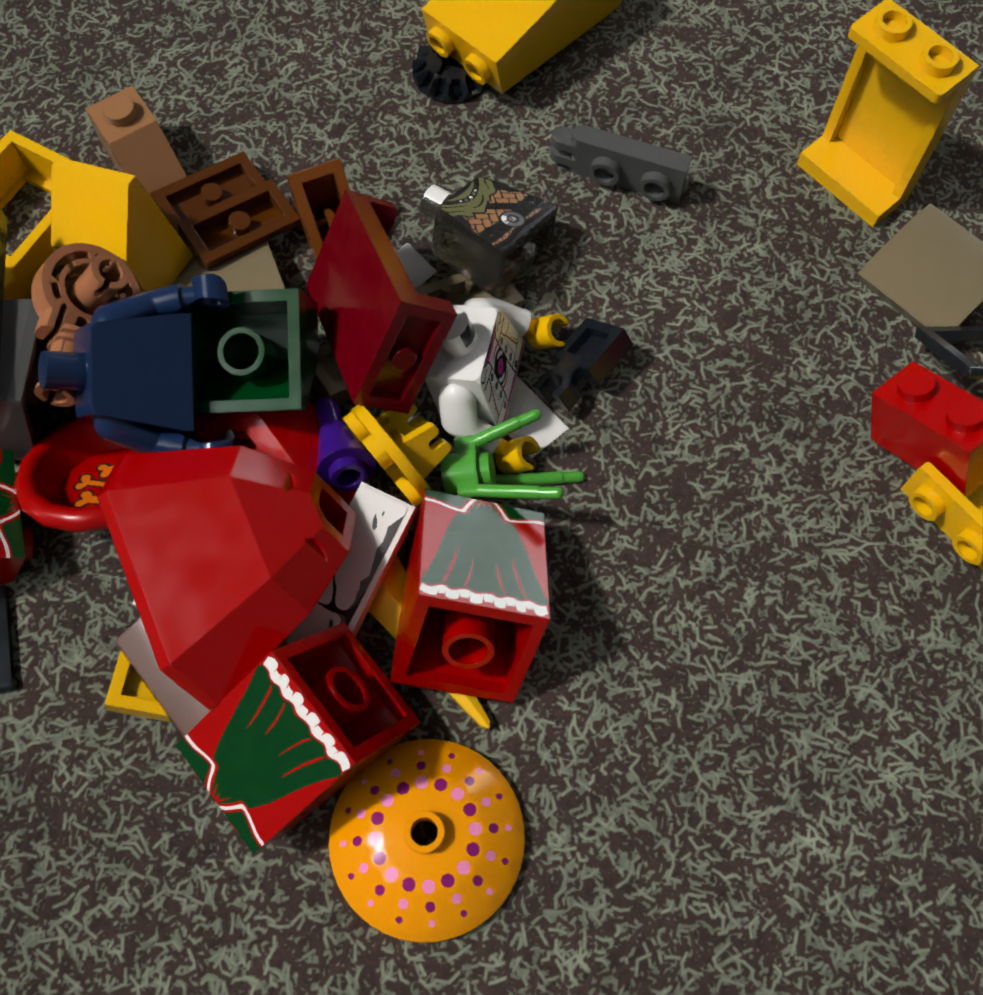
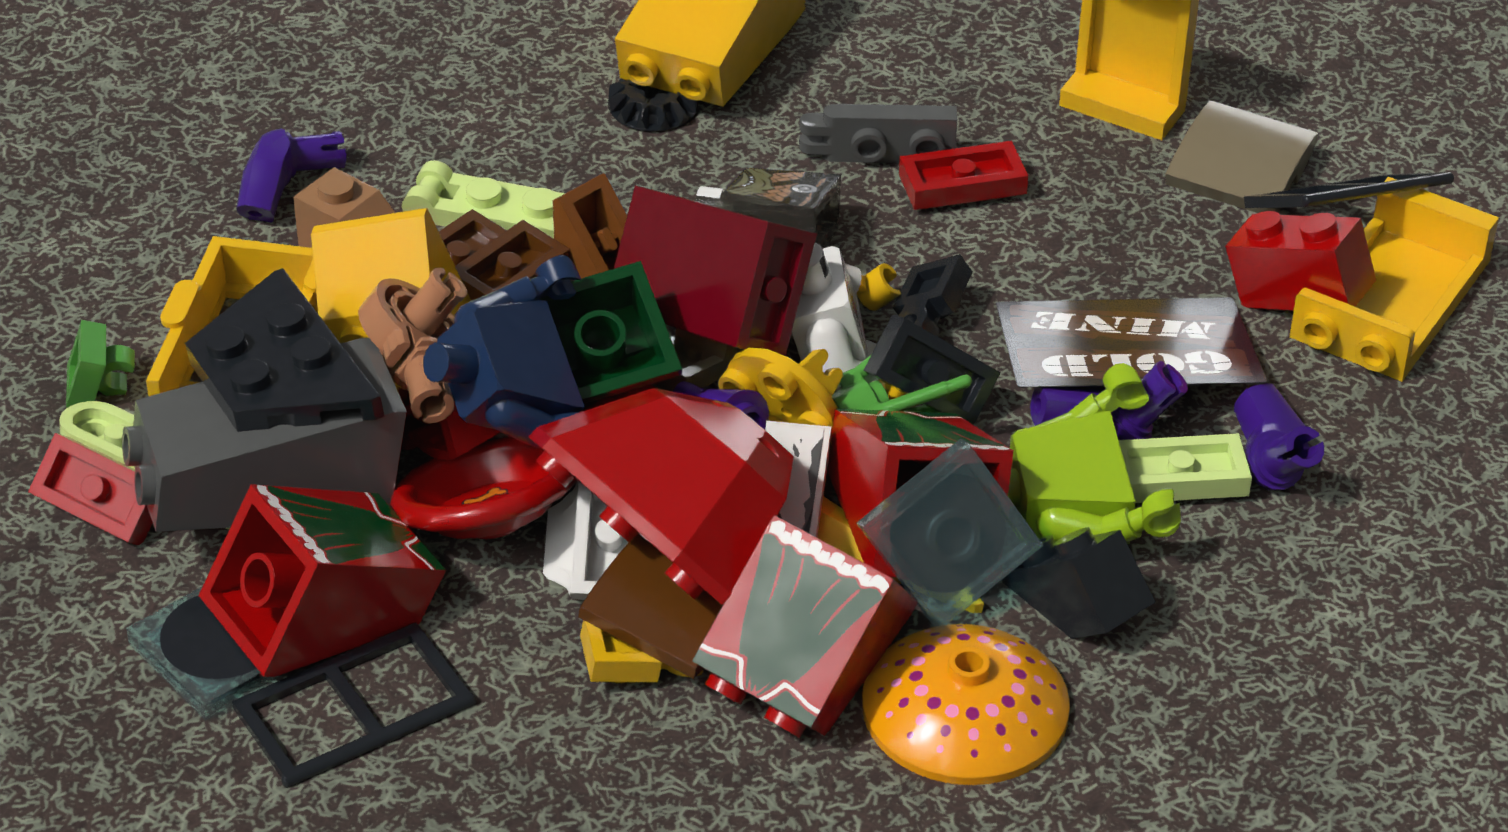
camera: 20 degrees left, 25 degrees down
(110, 61) = (276, 162): none -> dark purple arm
(267, 143) = (454, 194): none -> yellowish green plate
(465, 674) = (950, 533): none -> clear light blue tile
(536, 456) = (915, 359): none -> black plate
(579, 747) = (1082, 582): none -> black slope
(624, 619) = (1074, 471): none -> lime torso
(675, 225) = (963, 175): none -> red plate
(691, 540) = (1161, 383): none -> dark purple arm
(733, 628) = (1189, 465): none -> yellowish green plate
(745, 466) = (1081, 339): none -> sticker
(834, 629) = (1275, 438): none -> dark purple arm

